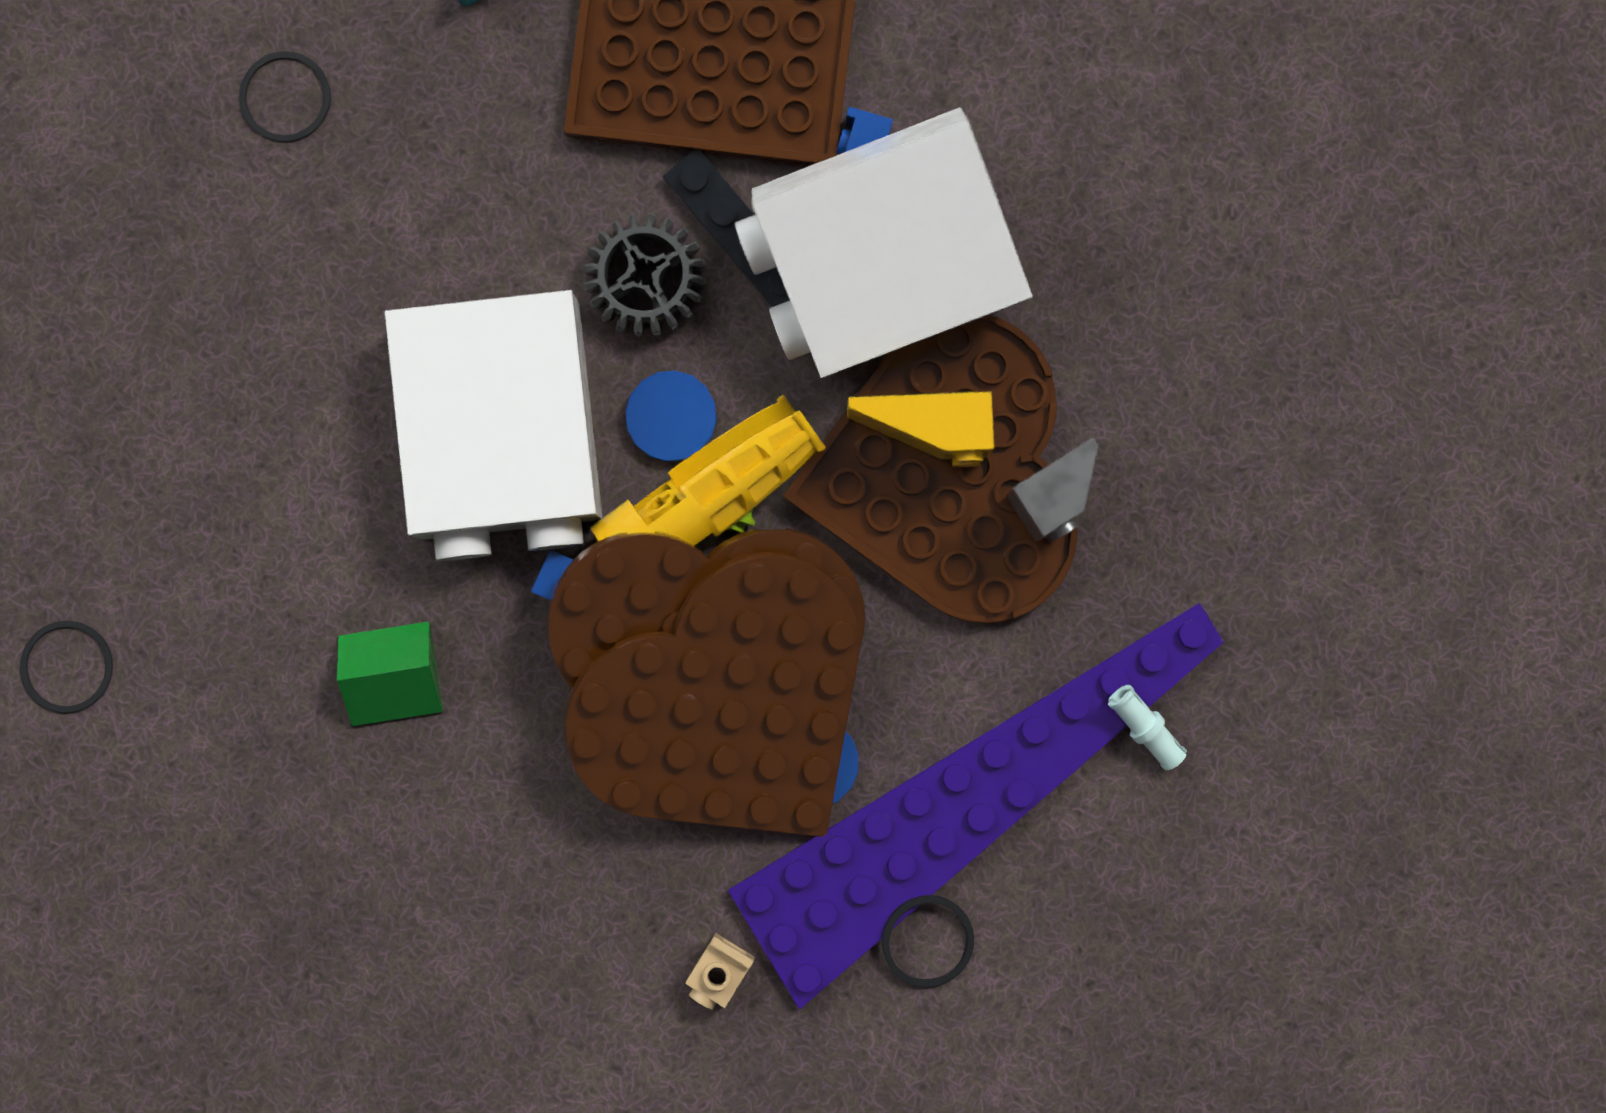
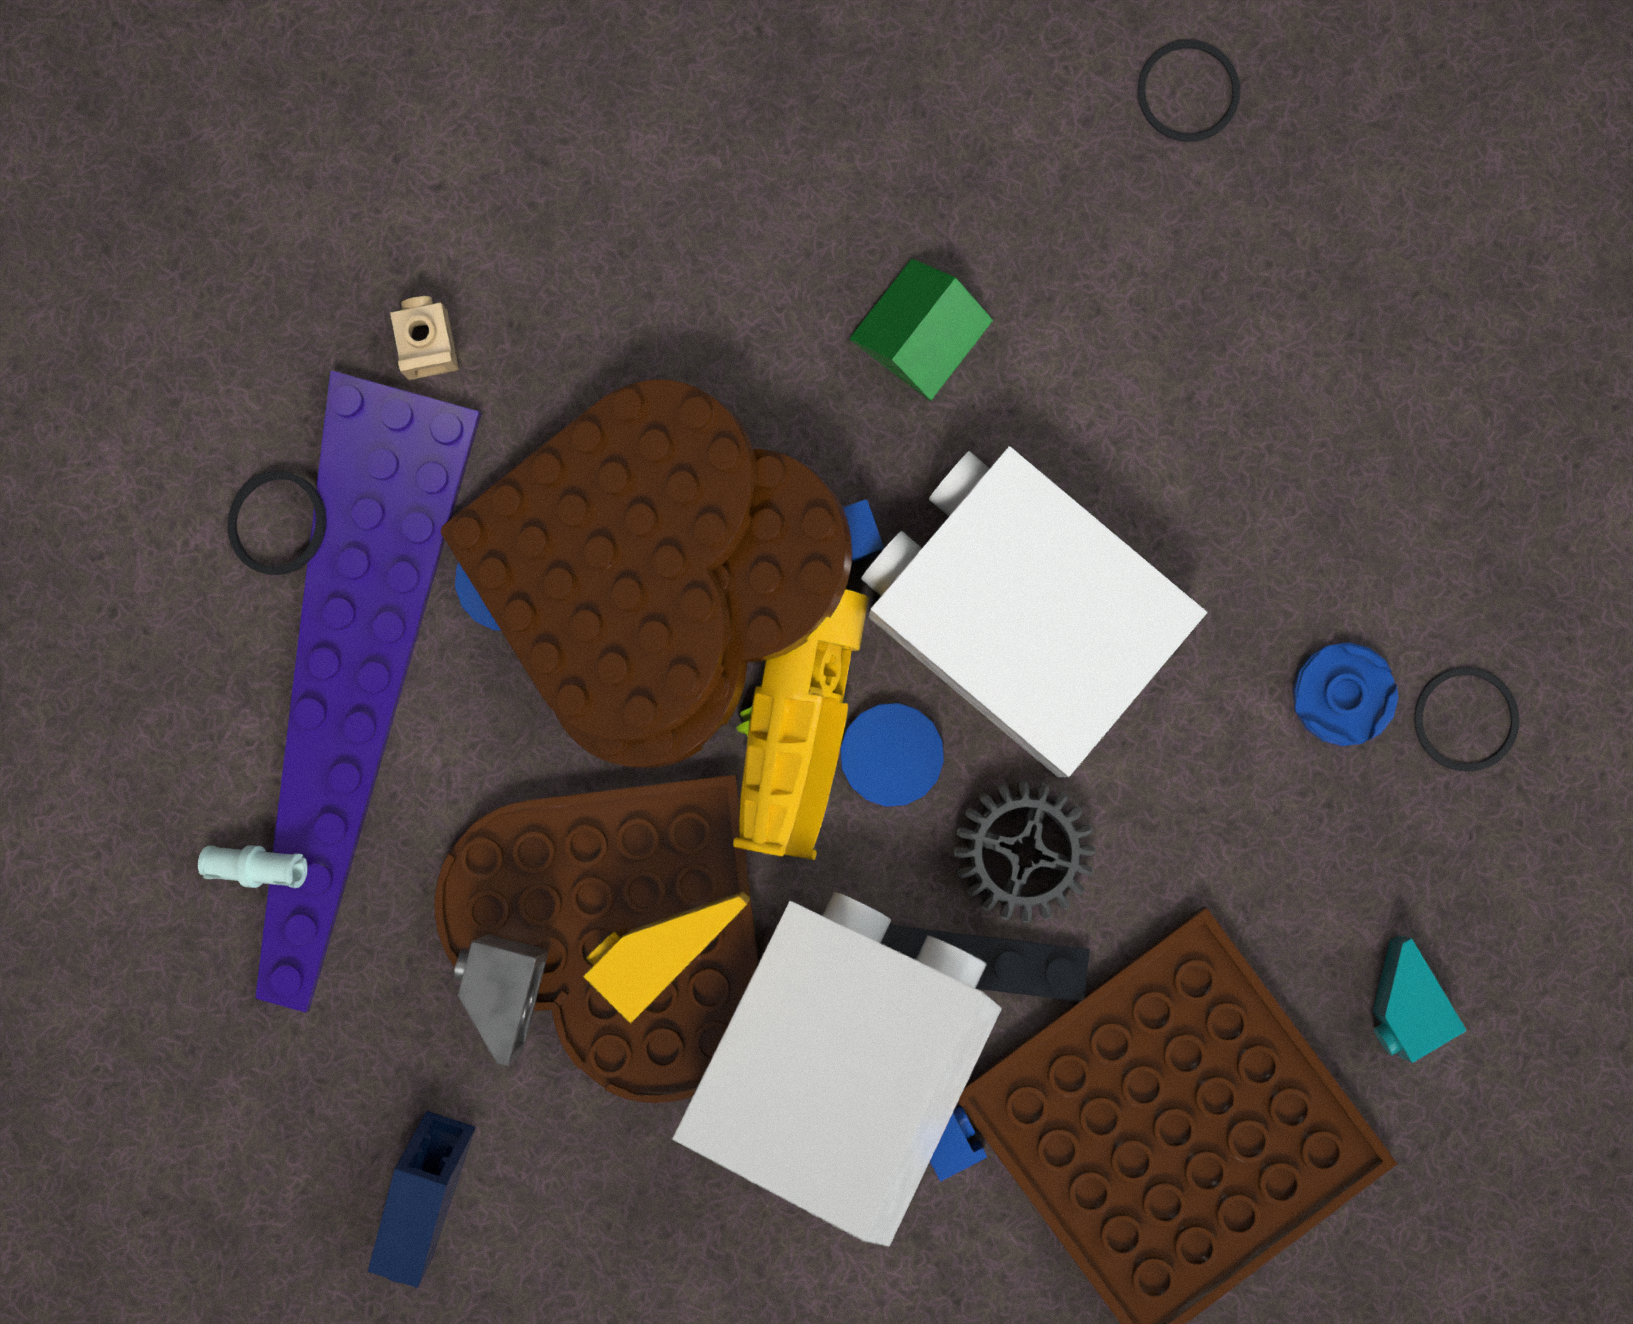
camera: 135 degrees right, 0 degrees up
(357, 195) = (1325, 694): none -> blue tile
(1232, 414) = (420, 1199): none -> dark blue slope

